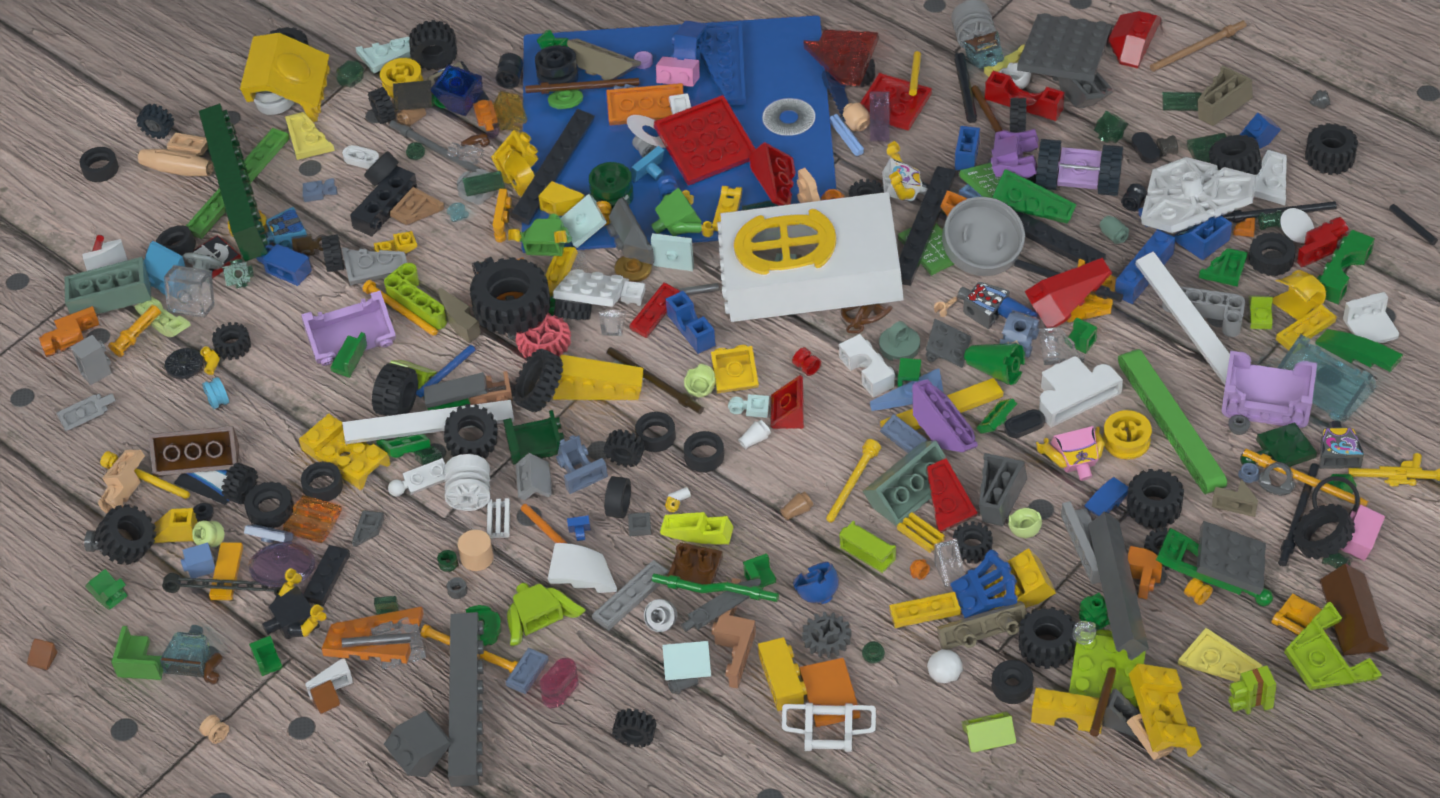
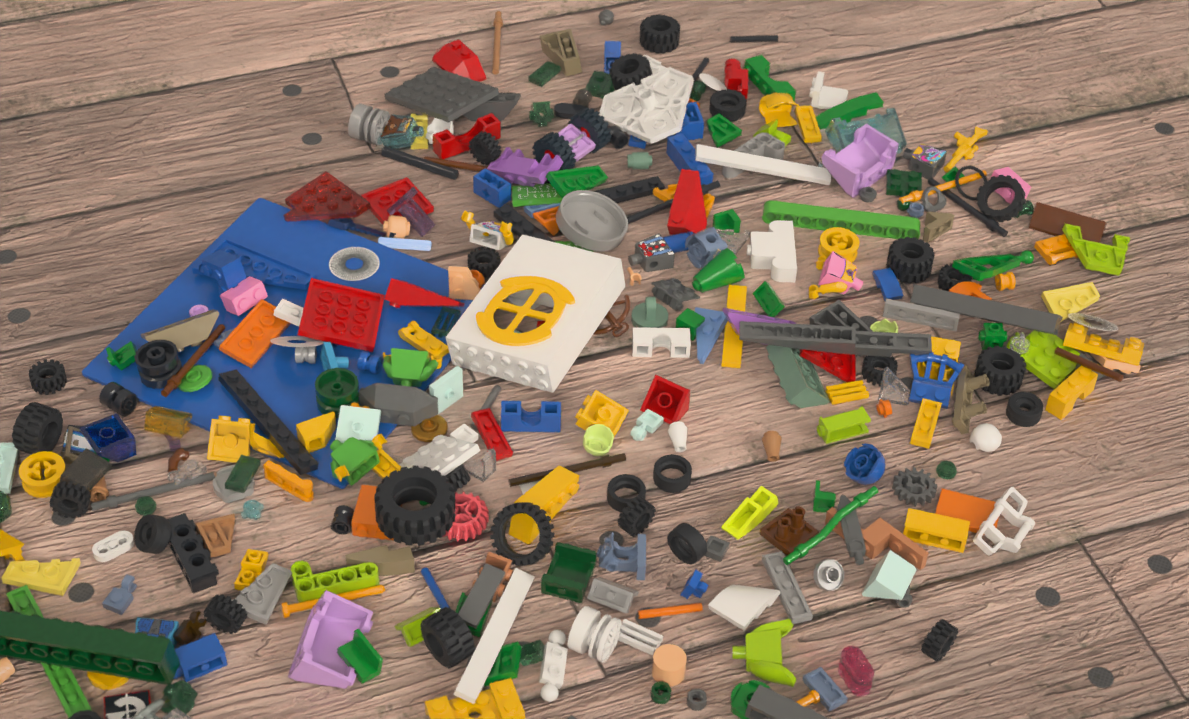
camera: 65 degrees left, 5 degrees down
(470, 417) = (545, 596): black tyre -> none
(485, 114) = (157, 437): orange hinge -> none
(501, 27) = (50, 384): none -> black tyre
(674, 499) = (706, 515): arm -> none
(805, 360) = (628, 372): red wheel -> none
(870, 450) = (746, 380): yellow piece -> none
(902, 434) = (749, 355): sand blue plate -> none
(915, 73) = (382, 177): yellow bar -> none
(955, 481) = (834, 339): none -> dark grey slope
(989, 731) = (1060, 440): lime panel -> none
(1024, 423) = (784, 289): black tile -> none
(1207, 706) = (1106, 325): none -> sticker
(1231, 557) = (992, 249): dark grey plate -> none
(1254, 689) = (1115, 294): lime hips -> none

